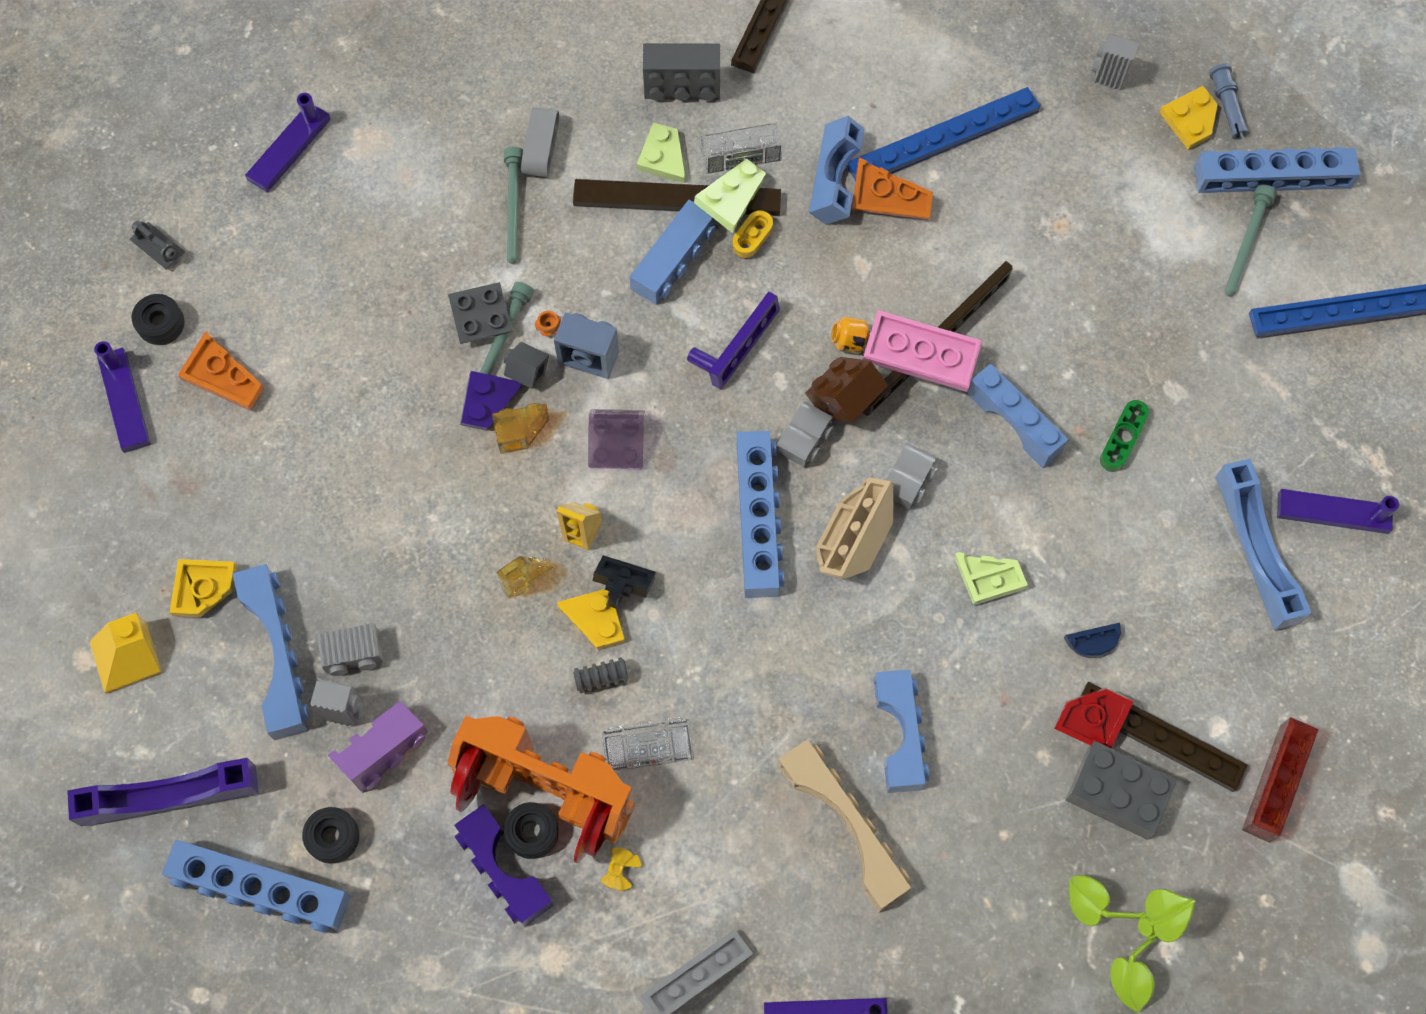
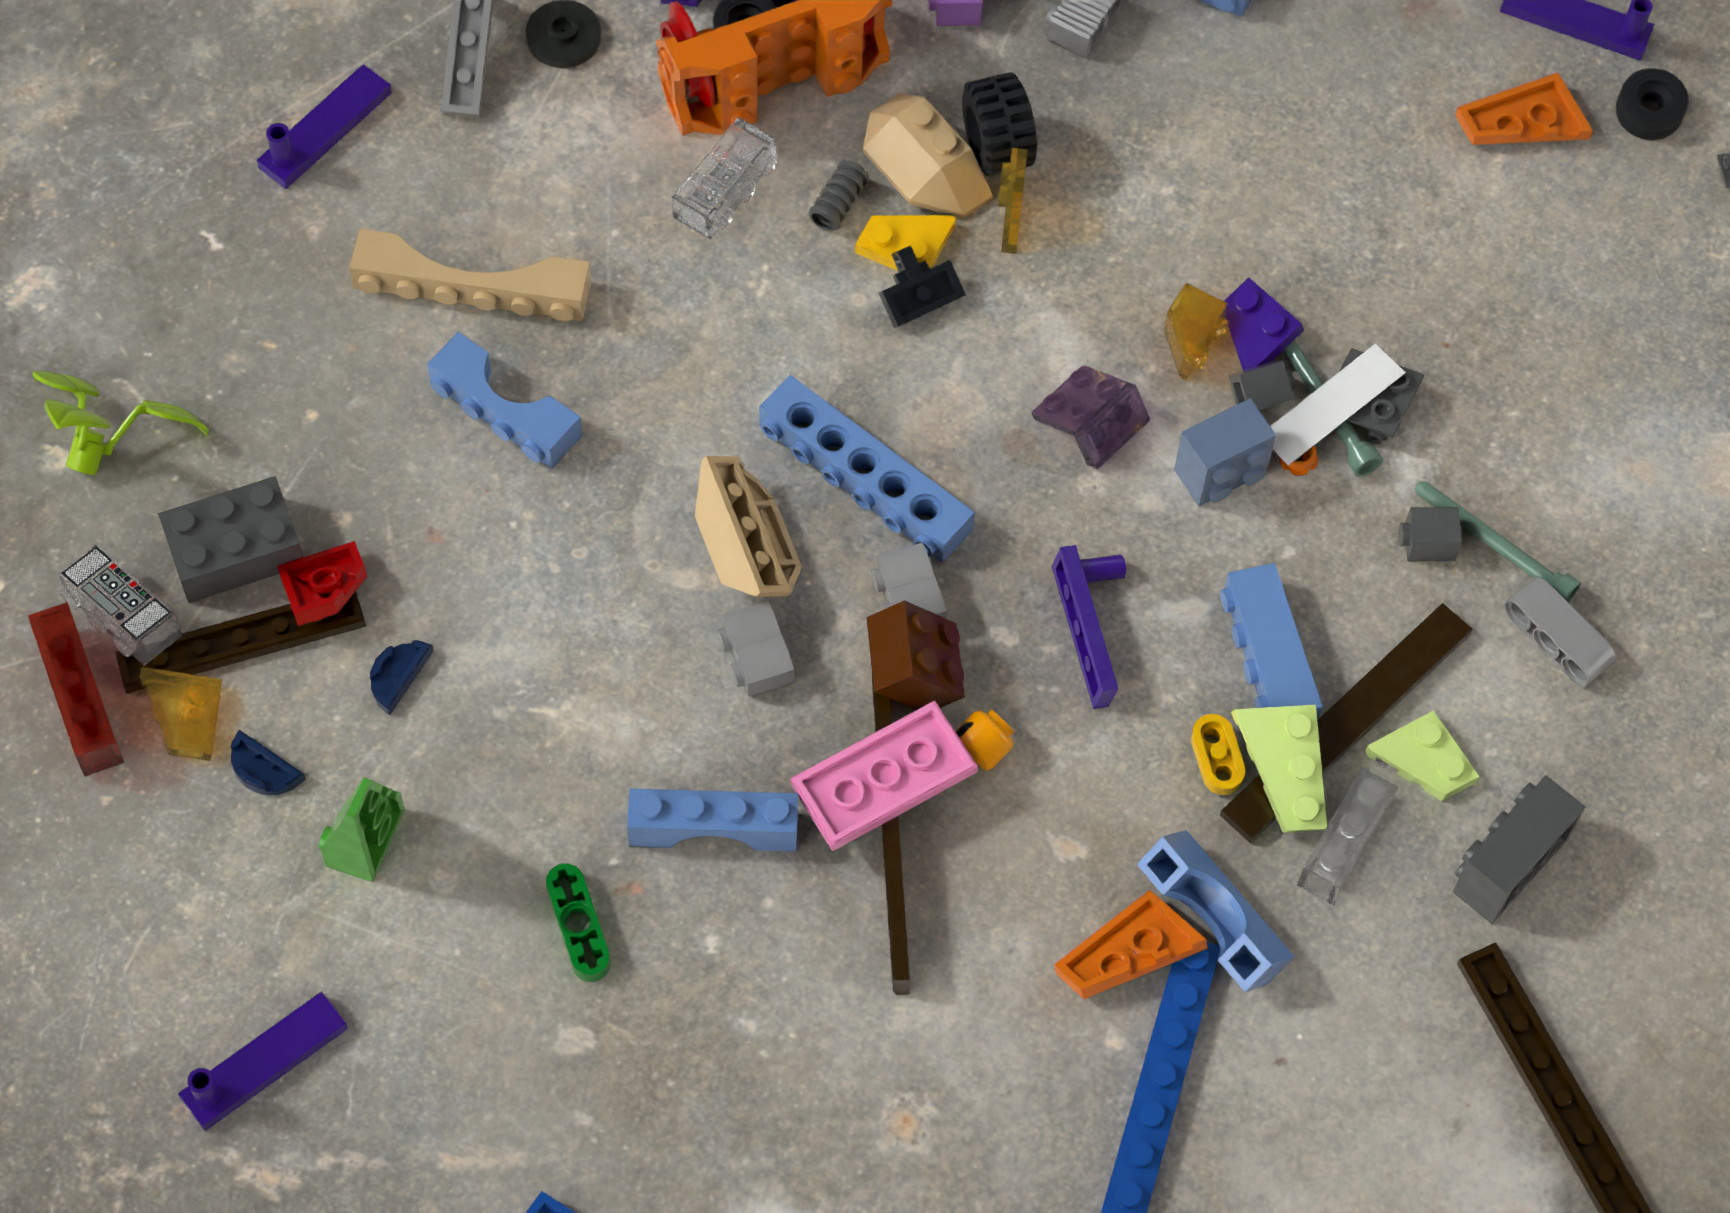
camera: 130 degrees right, 5 degrees down
(482, 615) = (997, 120): none -> black tyre
(506, 321) = (1334, 403): none -> white sticker
(532, 657) = (925, 157): none -> tan wedge
(538, 230) = (1431, 534): none -> dark grey brick
(579, 523) = (1017, 280): yellow slope -> none
(619, 858) = (630, 58): yellow piece -> none
(631, 953) = (563, 33): none -> pearl dark grey piece
(990, 577) = (568, 629): yellowish green wing -> none
(1204, 557) = (362, 830): none -> bright green wedge
(1211, 656) = (262, 769): none -> dark blue tile
(1217, 807) = (119, 605): none -> brick
(1226, 720) = (185, 710): none -> clear yellow wing
(1277, 587) = (360, 952): medium blue arch -> none

